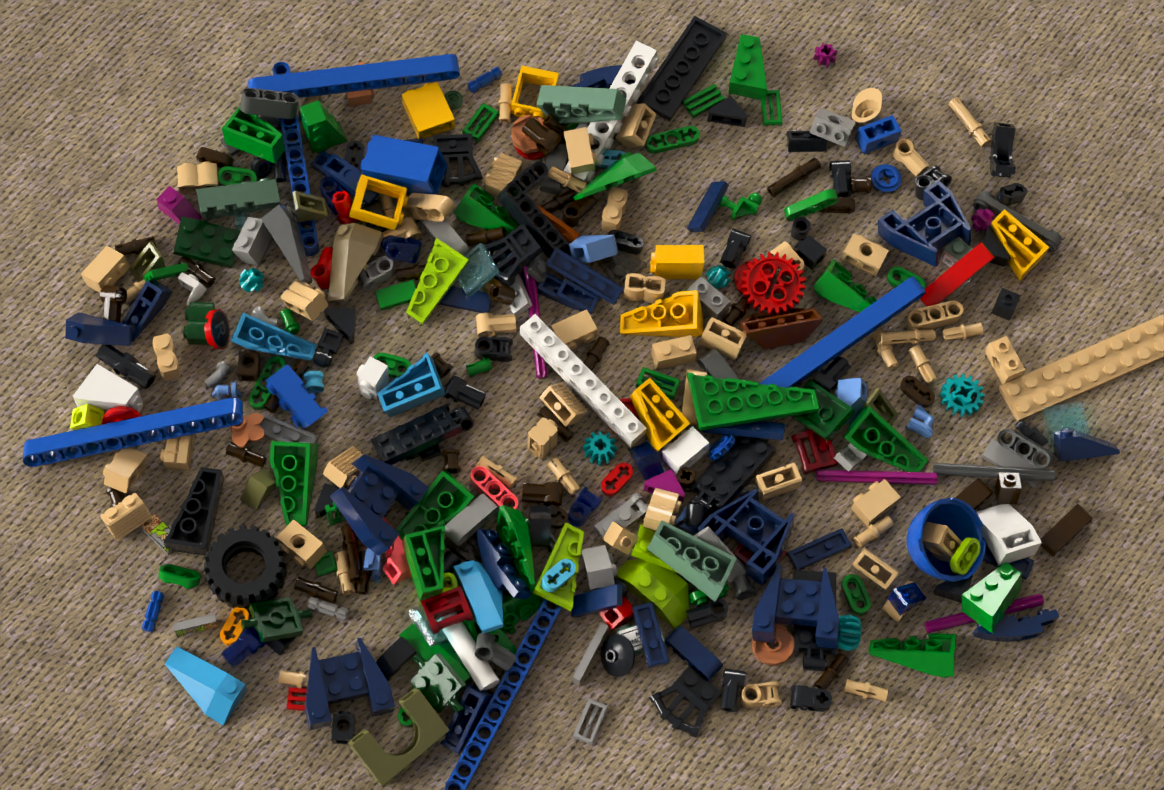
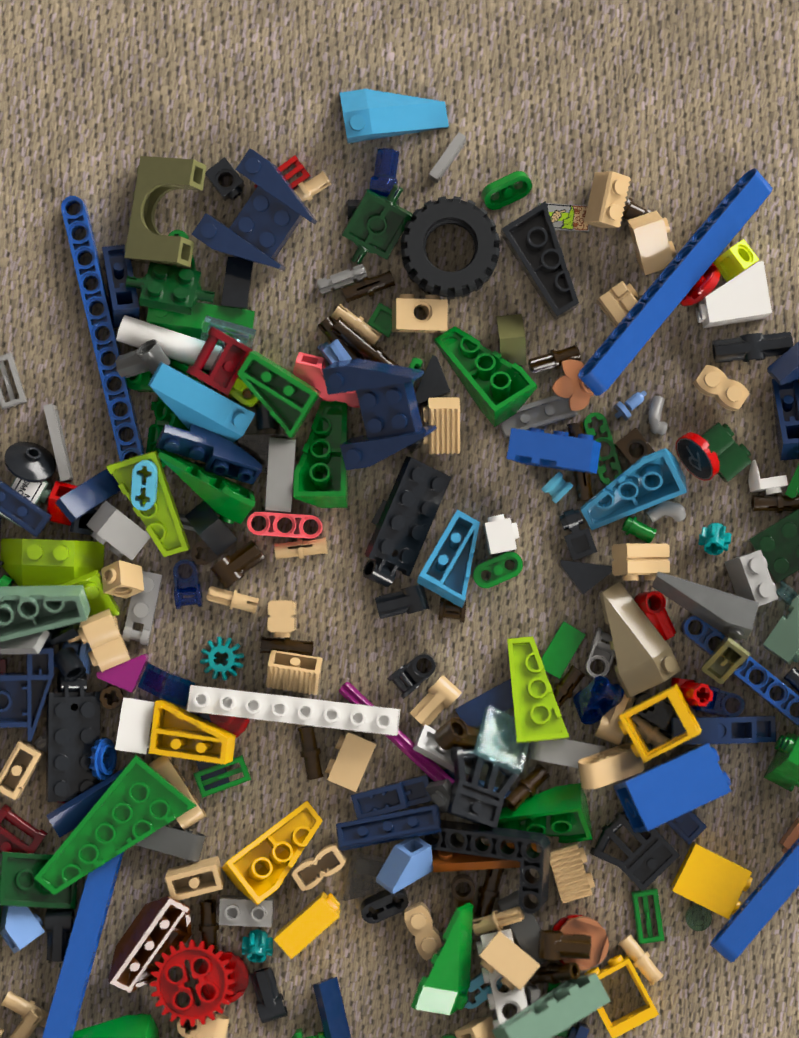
camera: 150 degrees right, 20 degrees up
(152, 611) = (500, 138): blue axle -> none
(230, 624) = (418, 187): light orange beam -> none
(359, 154) = (733, 766): black beam -> none
(451, 460) = (353, 521): dark brown bush -> none
(479, 367) = (412, 642): green pin -> none
(484, 79) = (687, 970): blue axle -> none
(613, 476) = (186, 641): red beam -> none
(673, 352) = (233, 822): tan brick -> none

